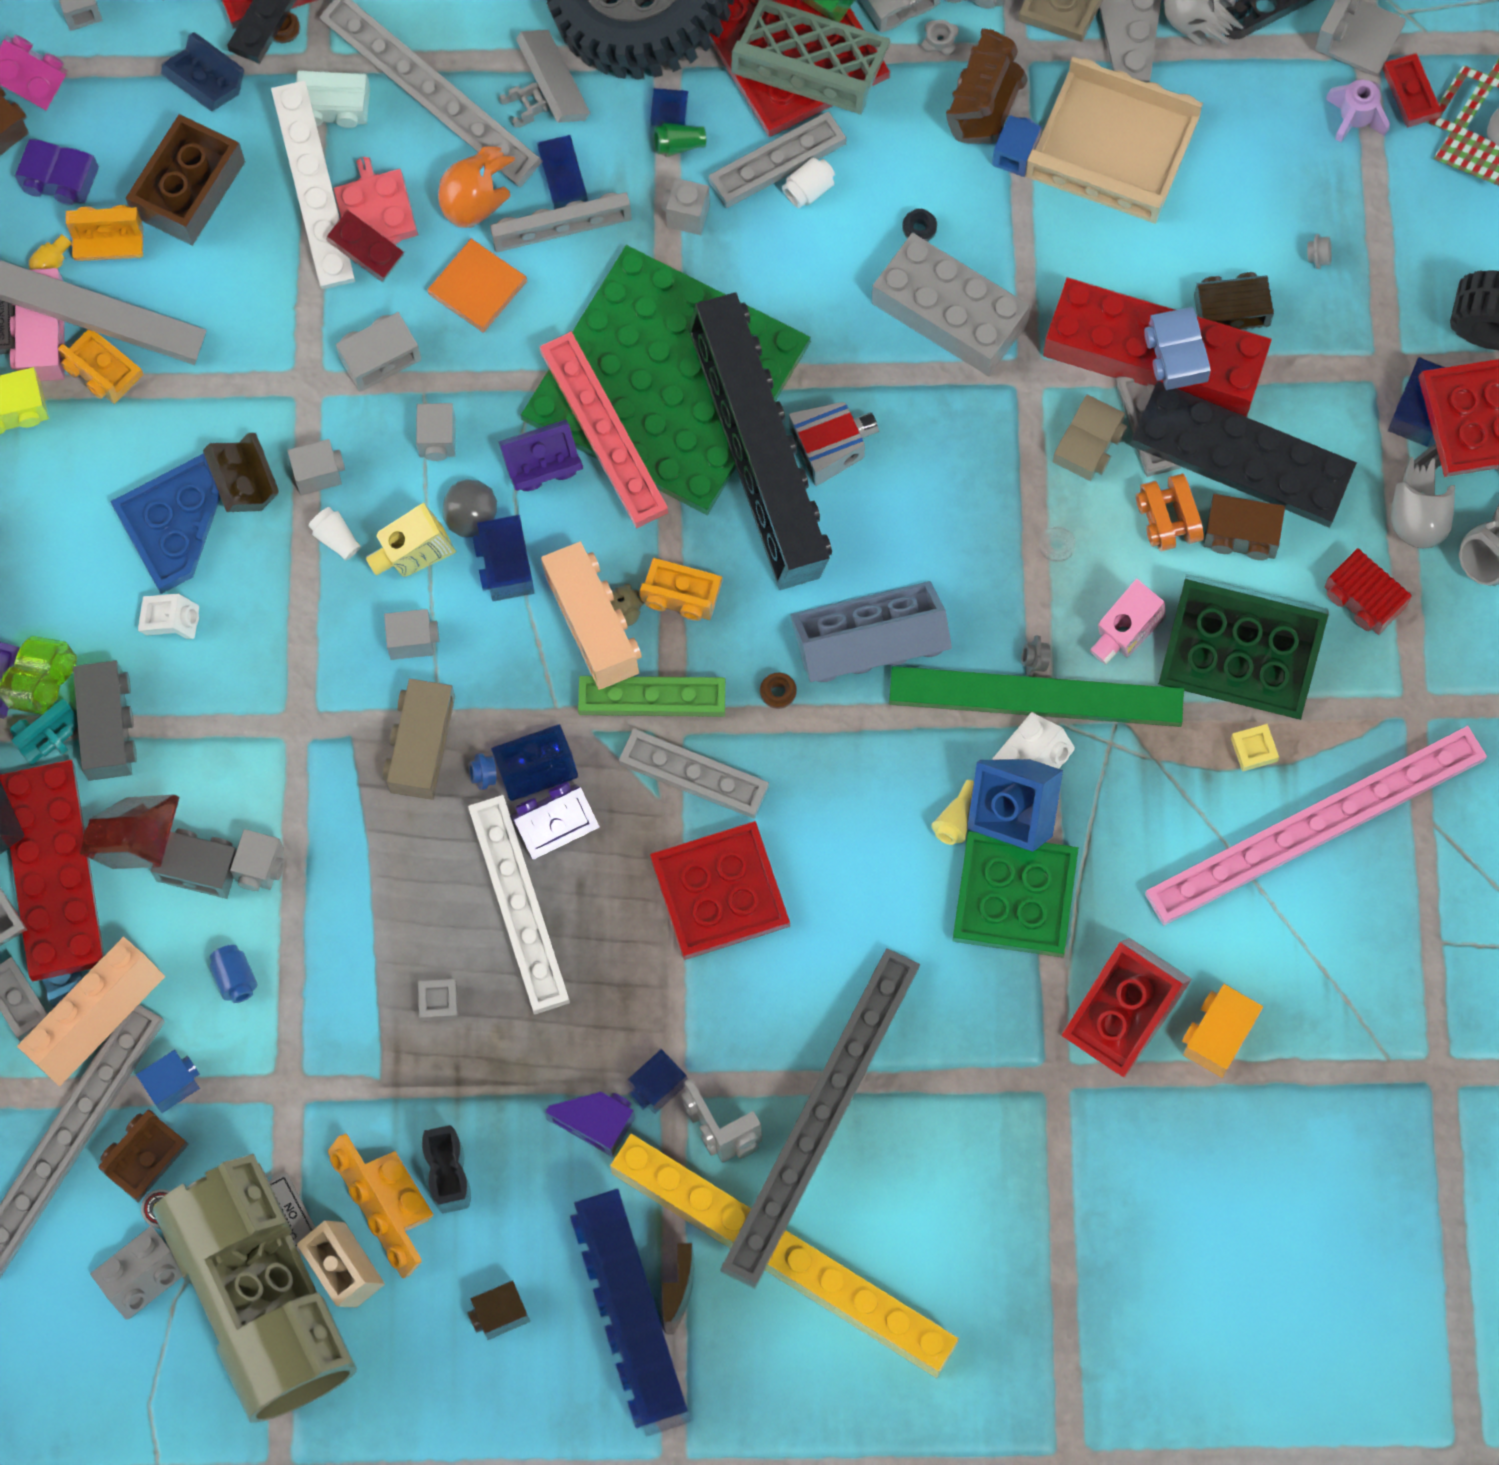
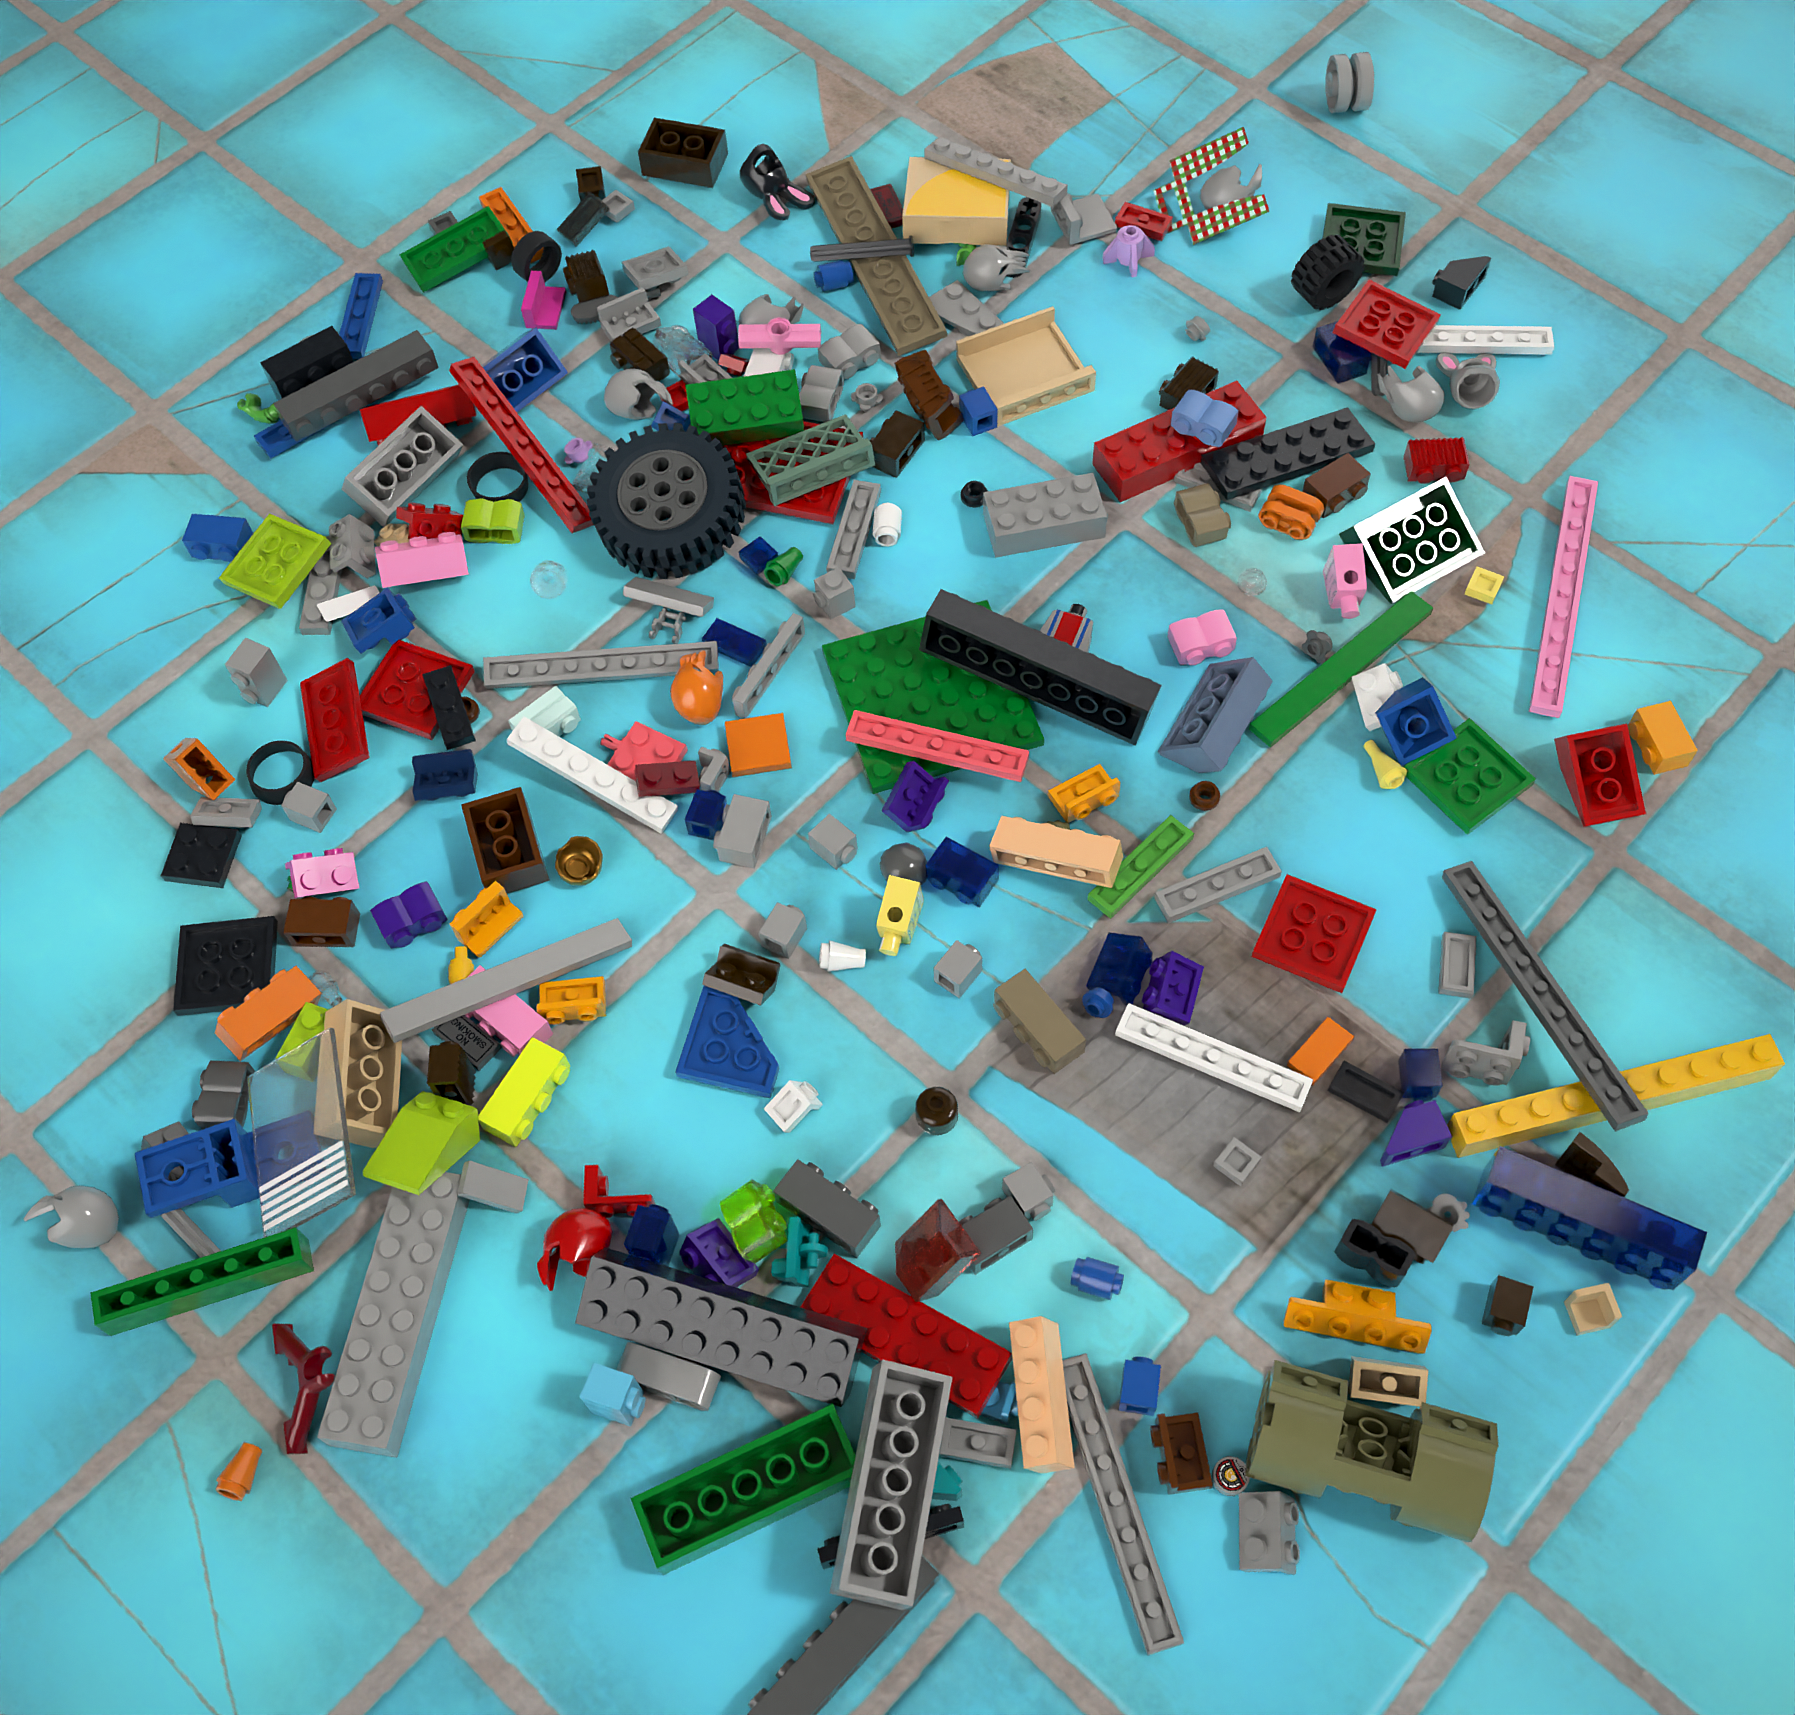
camera: 45 degrees left, 10 degrees down
(225, 252) = (579, 861): none -> pearl gold hair
(261, 729) = (936, 1110): none -> dark brown head
(365, 305) = (705, 814): none -> clear blue brick
(411, 279) = (715, 769): none -> light grey bracket
(500, 1180) = (1413, 1225): none -> dark brown brick
(536, 1202) = (1448, 1202): none -> light grey animal
(558, 1380) = (1592, 1309): none -> tan panel
(604, 1052) = (1365, 1091): none -> black tile
(609, 985) = (1320, 1050): none -> orange tile
(804, 1033) = (1457, 965): none -> light grey tile
(907, 109) = (897, 443): none -> dark brown brick
(946, 551) = (1202, 637): none -> bright pink brick

